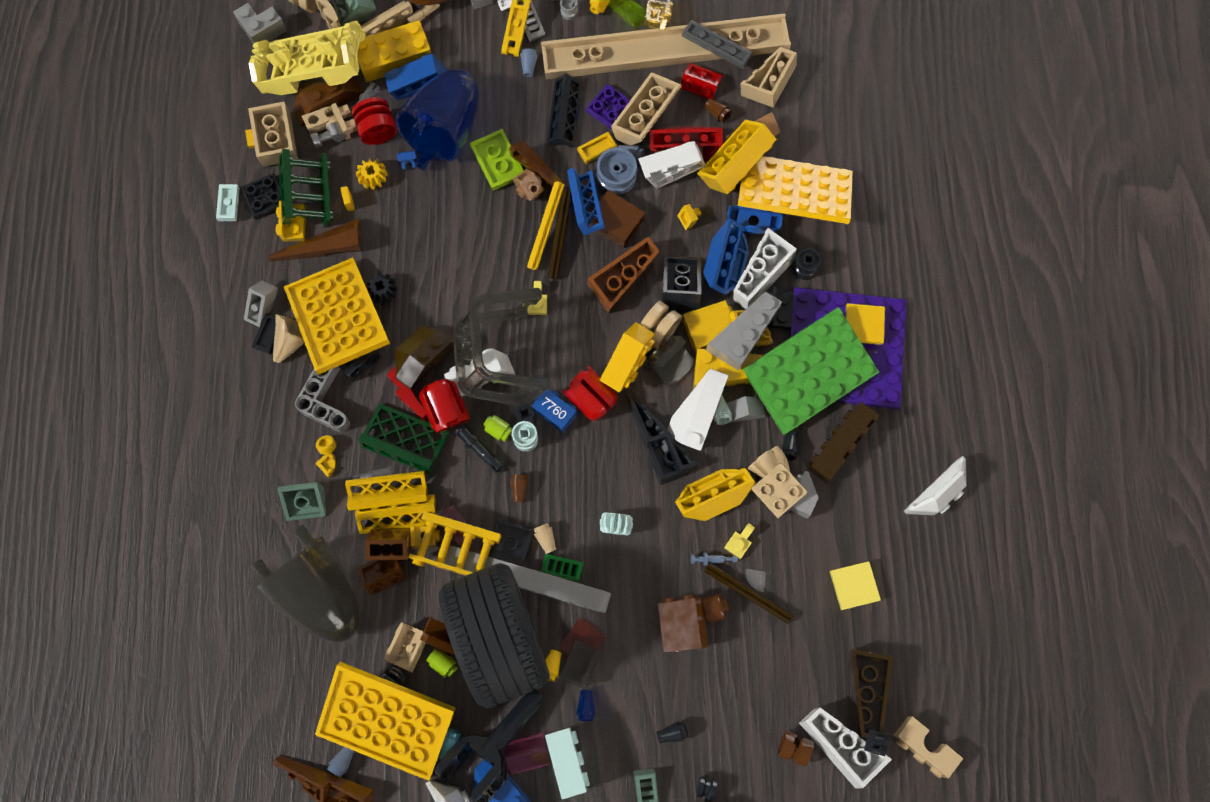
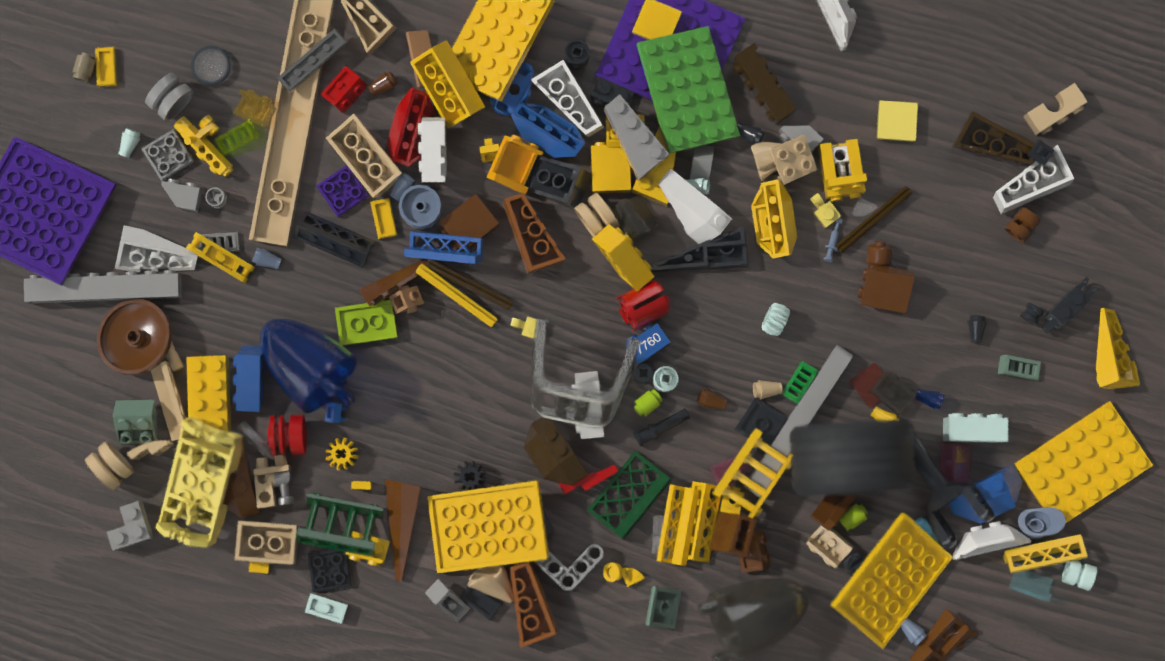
camera: 75 degrees left, 10 degrees up
(273, 377) = (531, 605): none -> dark orange wedge
(443, 405) = (614, 446): red cylinder -> none
(684, 238) = (514, 163): none -> light orange panel
(773, 552) = (843, 185): none -> yellow brick

